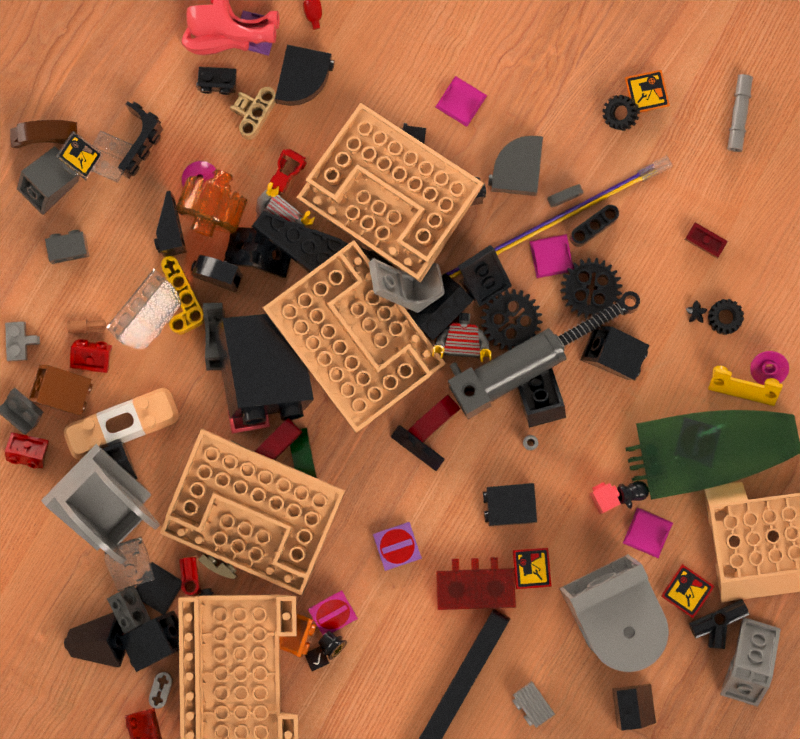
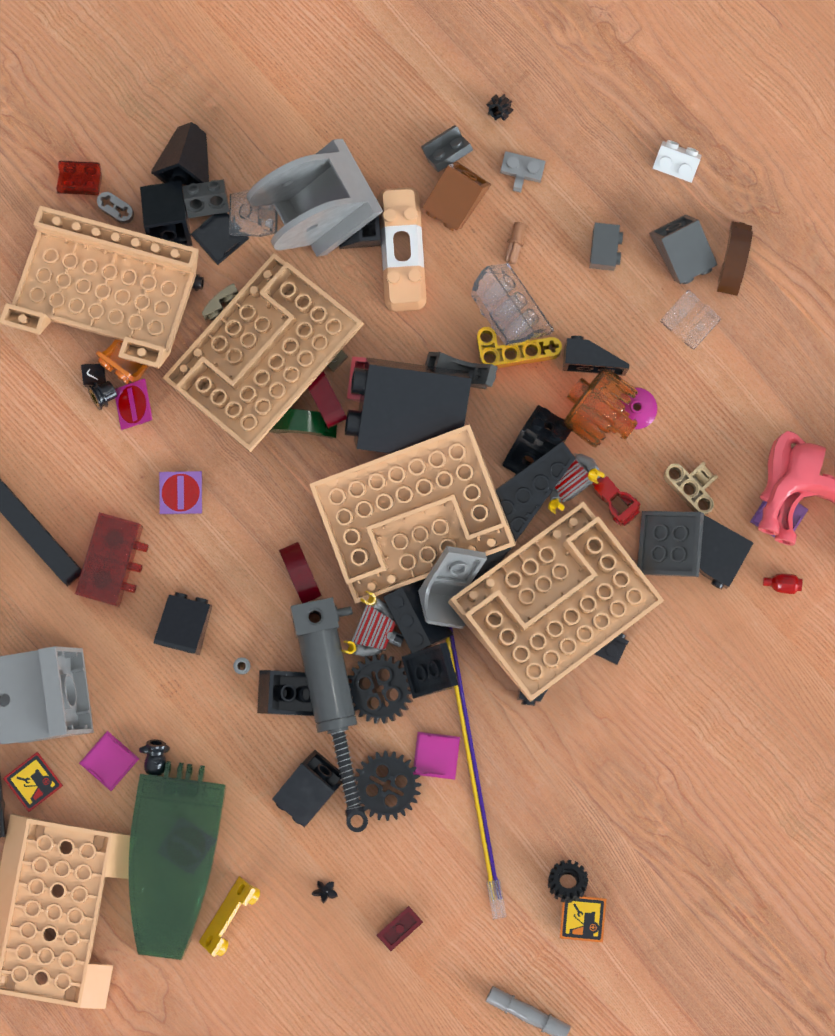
camera: 105 degrees right, 0 degrees up
(26, 450) = (405, 144): red bracket -> none
(78, 156) = (698, 286): piece -> none
(90, 355) = (483, 237): red bracket -> none
(149, 135) = (699, 367): black bracket -> none
(189, 574) = (223, 271): red piece -> none
(216, 79) = (739, 457): black bracket -> none
(217, 272) = (526, 392): black brick -> none
(309, 113) = (670, 543): none -> dark grey plate
(417, 448) = (277, 546): black piece -> none
(461, 101) = (636, 712): dark pink piece -> none
(518, 167) = (543, 749): dark grey brick -> none
(532, 568) = (111, 625): piece -> none
(565, 195) = (496, 791): dark grey beam -> none
(598, 217) = (453, 823): black beam -> none
(605, 497) = (158, 726): coral brick -> none
(736, 311) = (296, 921): black tyre -> none
(778, 370) = (239, 940): dark pink dish -> none

